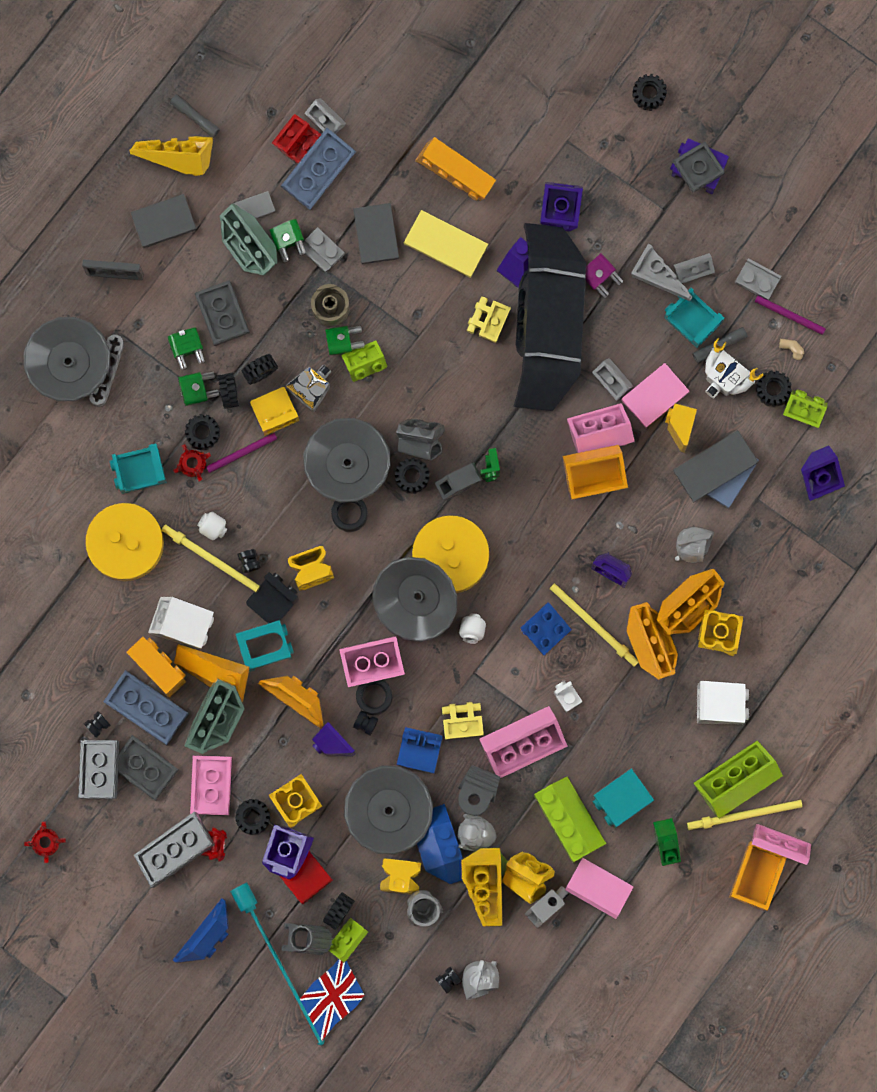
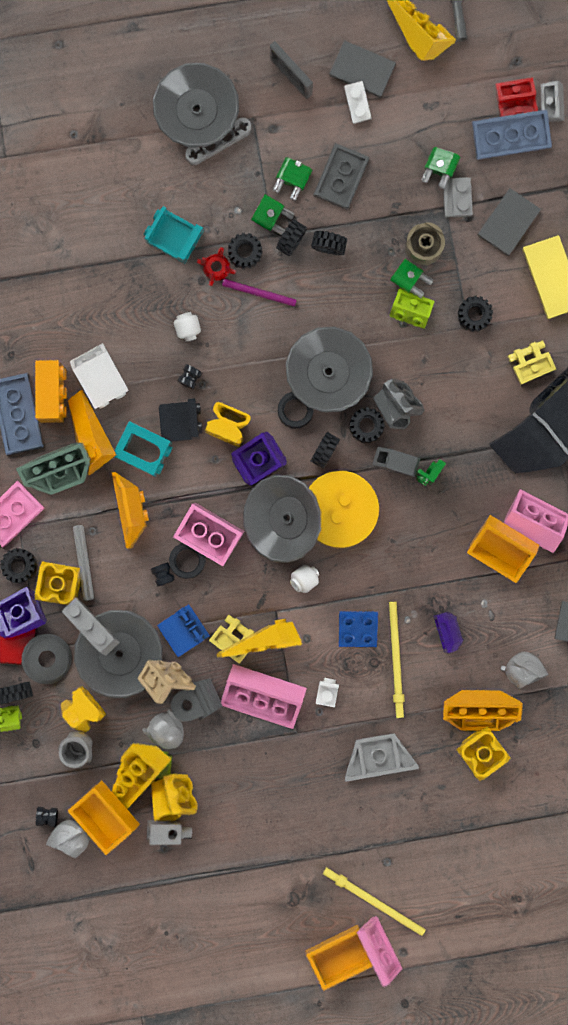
camera: 40 degrees right, 5 degrees up
(124, 542) = (113, 279): yellow brick -> none
(180, 538) = (156, 314): light yellow bar -> none
(183, 248) = (357, 102): none -> white plate
(247, 241) = (409, 139): sand green wedge -> none
(257, 205) = (437, 120): light grey slope -> none
(274, 411) = (311, 284): yellow bracket -> none
(298, 769) = (83, 562): none -> light grey axle
(310, 386) = (354, 290): torso -> none
(327, 876) = (50, 674): none -> dark grey piece
(331, 742) = (124, 566): dark purple slope -> none
(350, 807) = (90, 627): none -> light grey arch
(356, 573) = (258, 458): none -> dark purple slope
(399, 521) = (325, 450): none -> black tyre
(414, 311) = (486, 313): none -> black tyre
(437, 796) = (161, 677): none -> tan bracket
(440, 848) = (128, 719): blue wedge -> none
(487, 694) = (273, 636): none -> yellow wedge
(491, 938) = (103, 817): none -> light orange piece
(569, 819) = (243, 784): lime slope -> none
(599, 888) = (217, 855): bright pink tile -> none
(622, 798) = (296, 806): teal panel -> none
(648, 707) = (378, 757): none -> light grey wing
(650, 642) = (425, 713): light orange wedge -> none
(667, 841) = (299, 867): green slope -> none
(721, 703) = (434, 805): white slope -> none
(738, 779) = (394, 872): lime slope -> none

